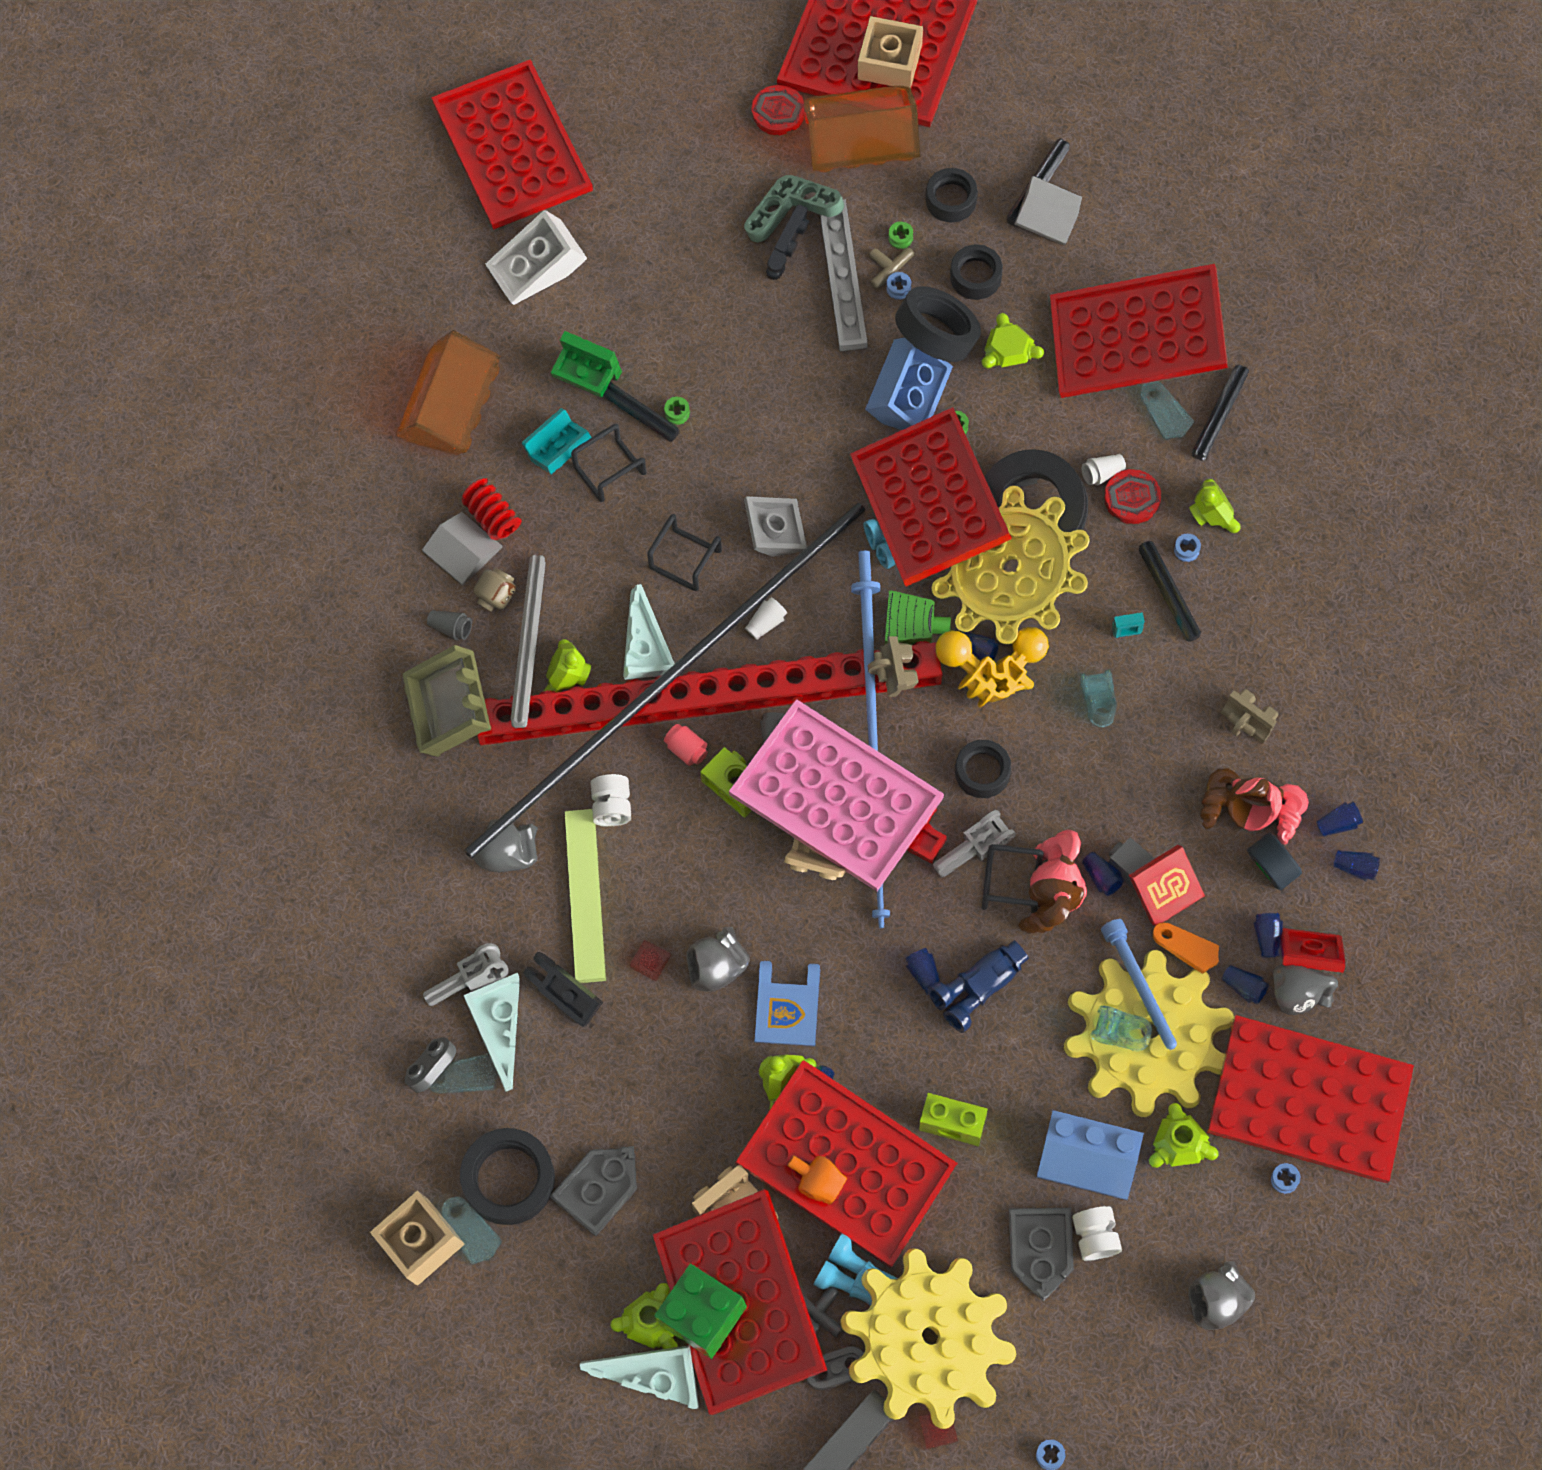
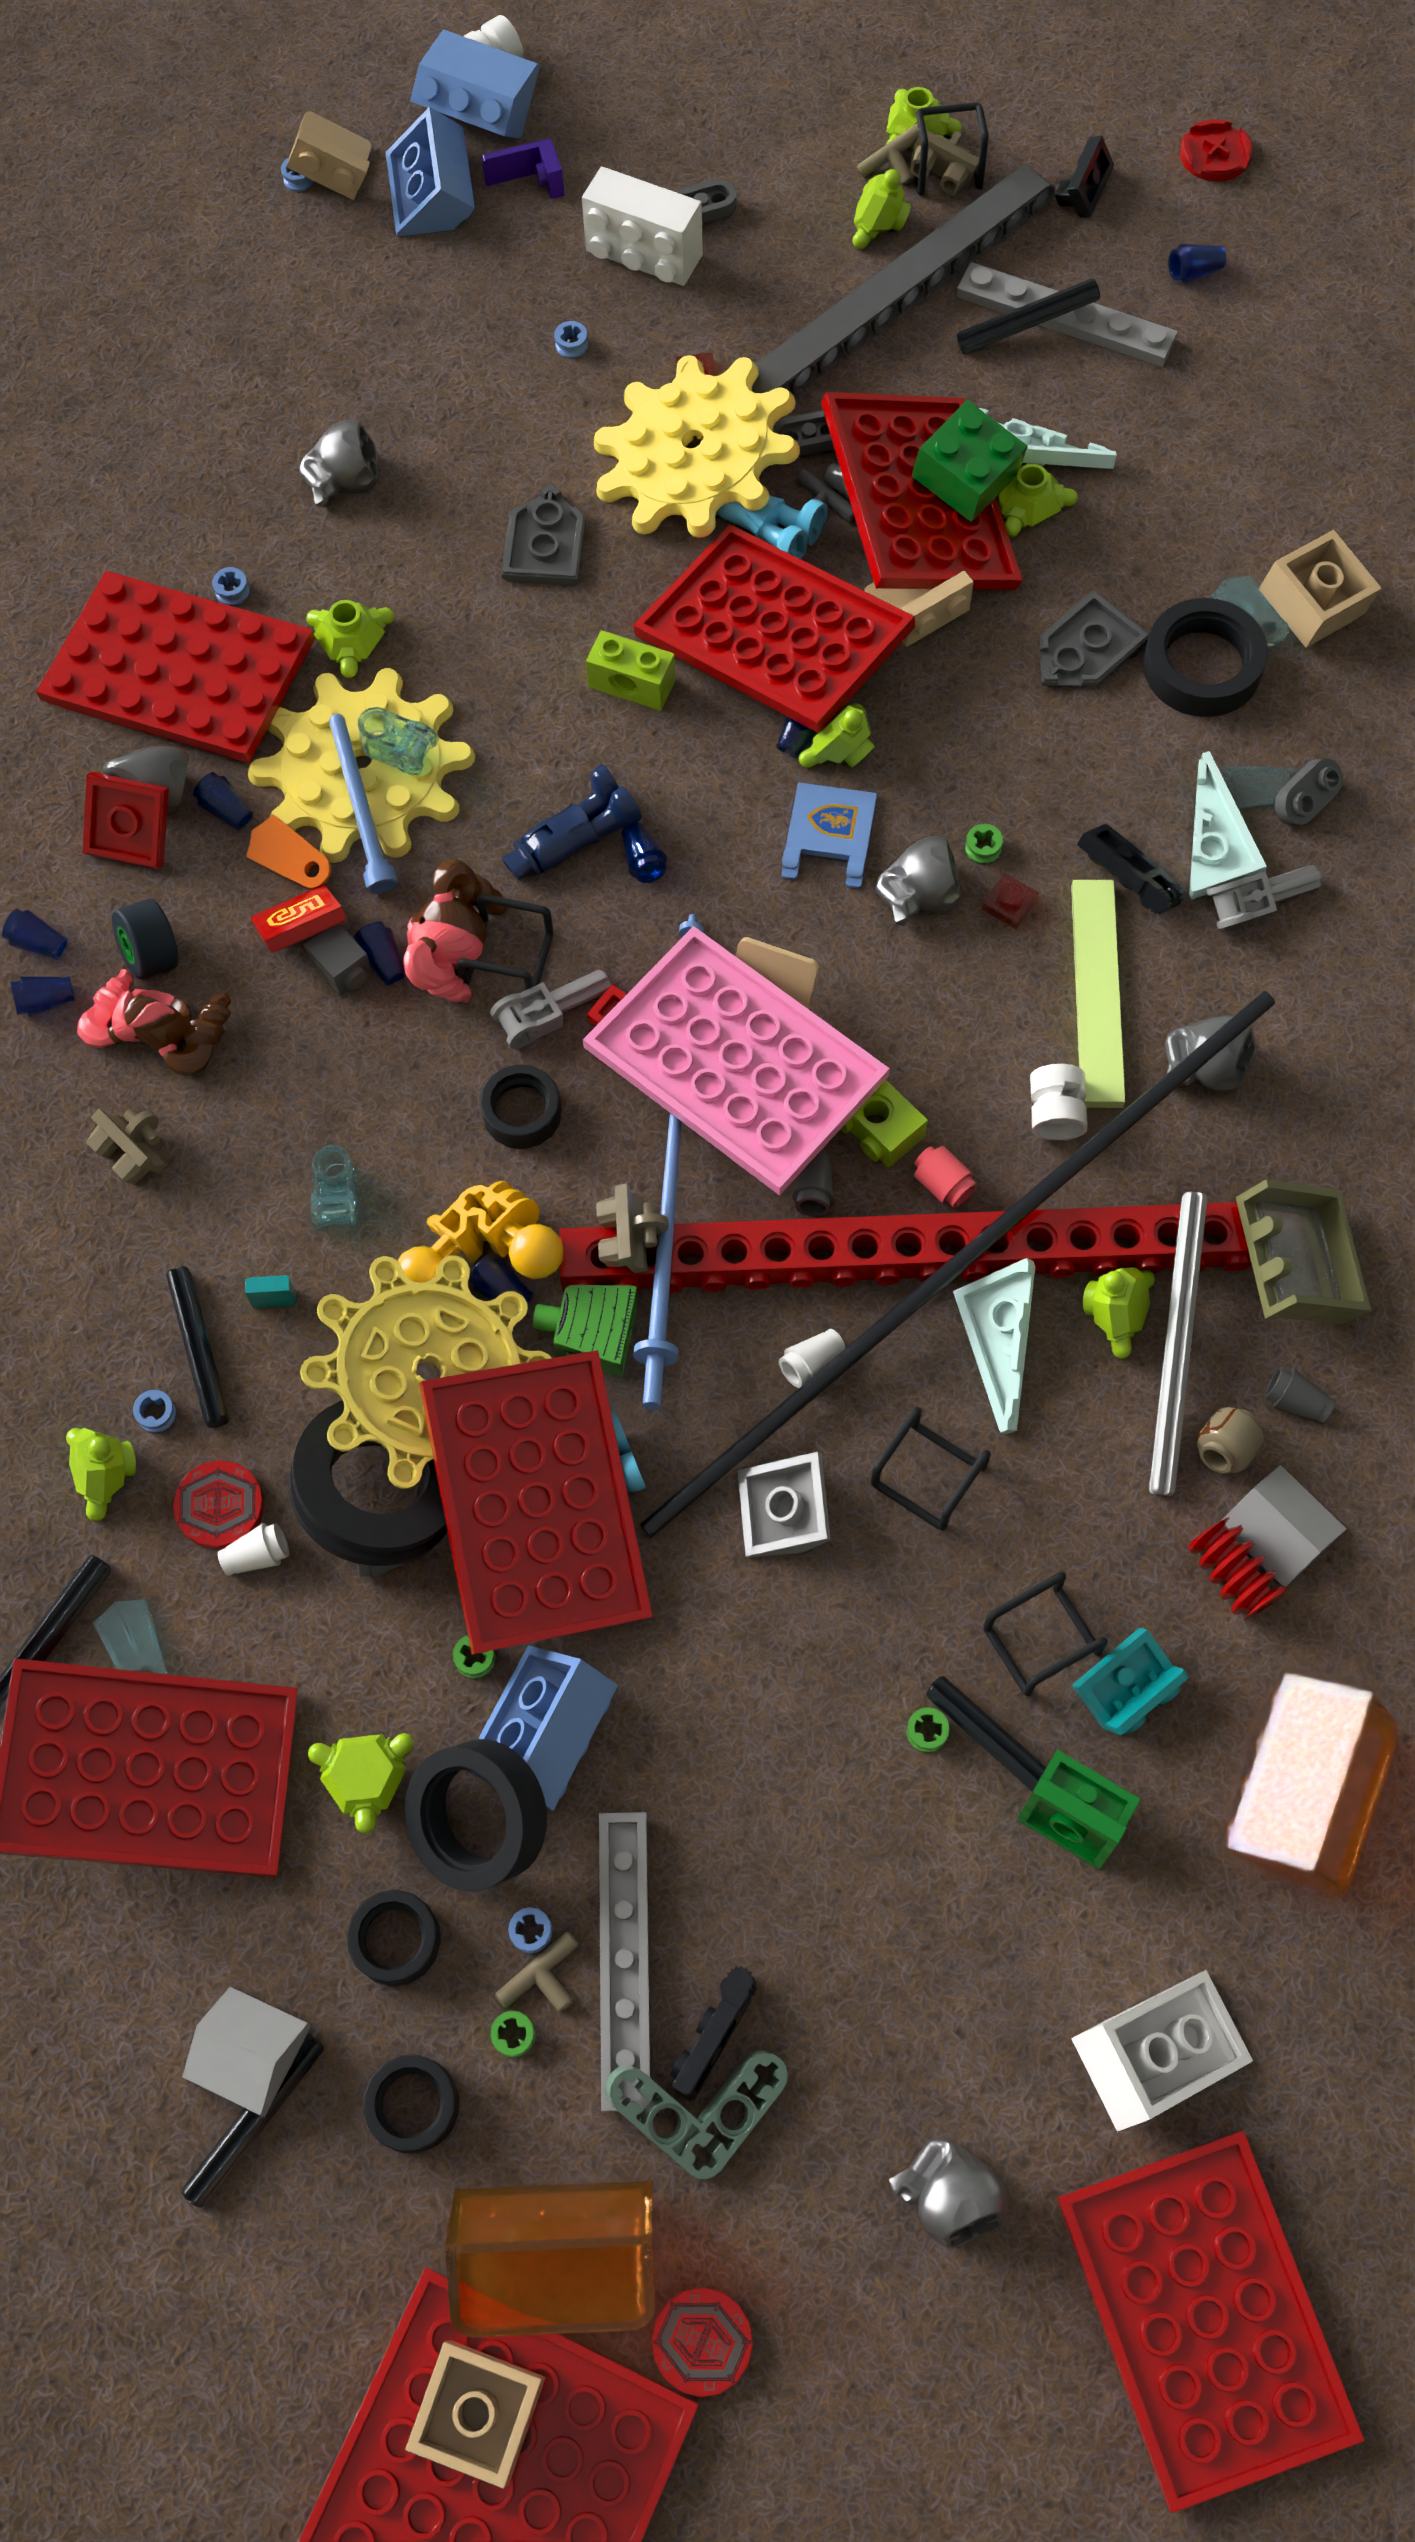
camera: 175 degrees left, 0 degrees up
(648, 180) = (954, 2193): none -> flat silver piece
(673, 1013) = (986, 854): none -> bright green bush
(820, 1179) = (808, 588): orange piece -> none
(1090, 1155) = (463, 628): medium blue slope -> none
(1096, 1228) = (474, 535): white wheel -> none
(1269, 934) = (176, 861): clear blue cone -> none

